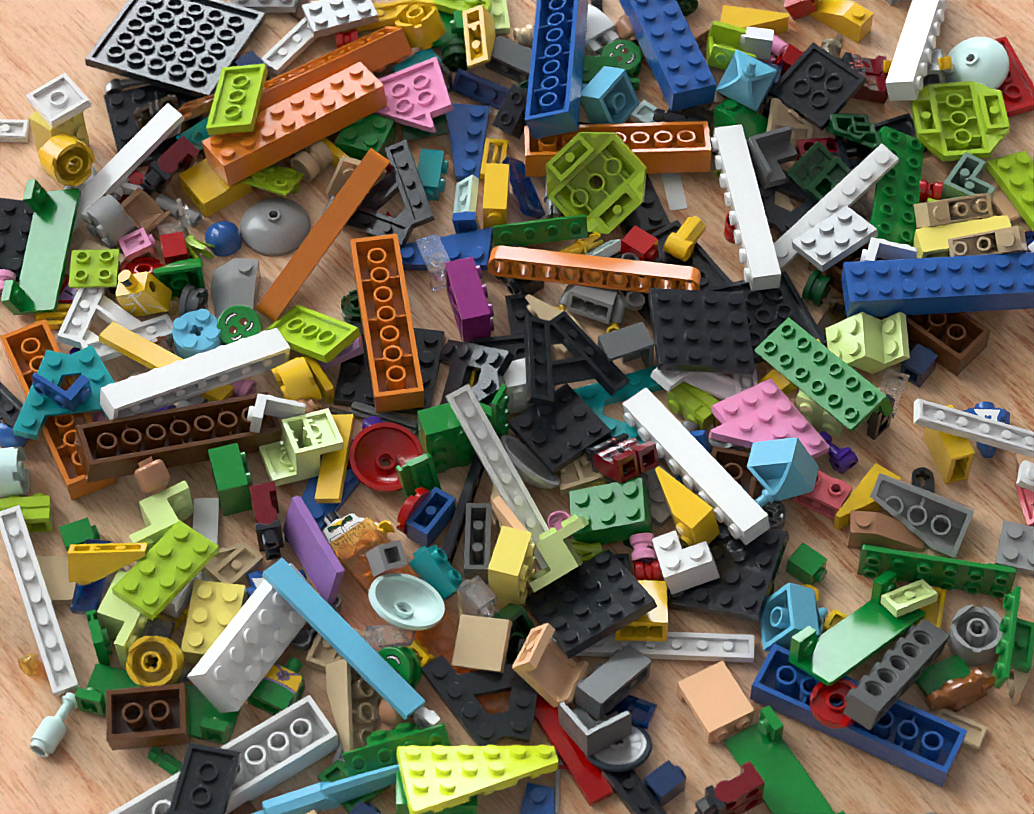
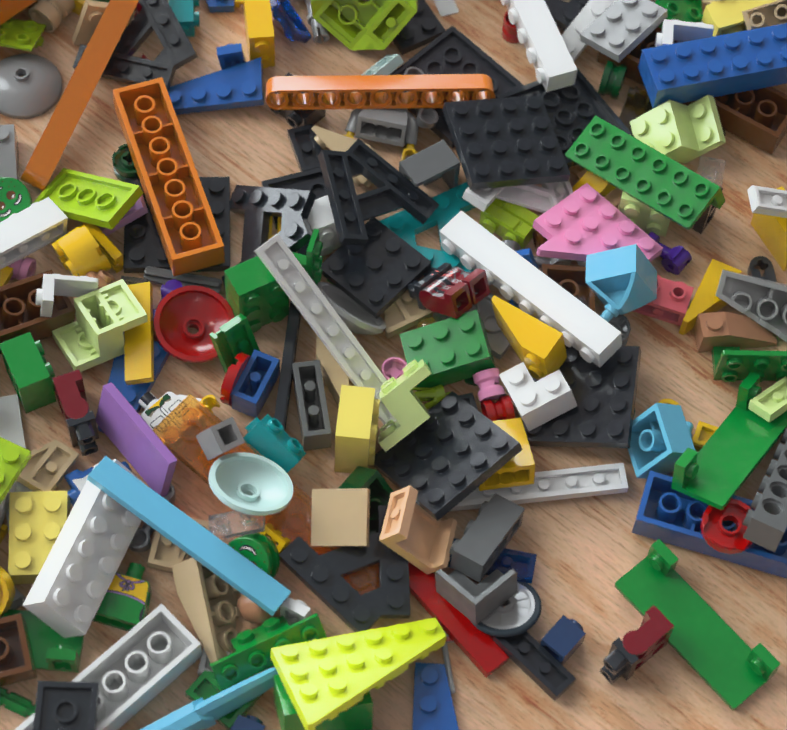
camera: 15 degrees left, 5 degrees up
(434, 258) = (208, 101): clear bracket -> none
(466, 195) = (224, 27): light aqua plate -> none
(469, 299) = (250, 139): magenta brick -> none
(476, 598) = (323, 469): clear brick -> none
(505, 514) = (338, 371): light nougat tile -> none
(541, 231) = (313, 55): green bracket -> none
(584, 245) = (360, 65): yellow axle -> none
(641, 244) = (422, 56): red brick -> none
(682, 243) = (465, 48): yellow piece -> none
(716, 701) = (599, 541): light nougat panel -> none
(807, 565) = (662, 378): green brick -> none
(919, 365) = (734, 149): dark blue brick -> none

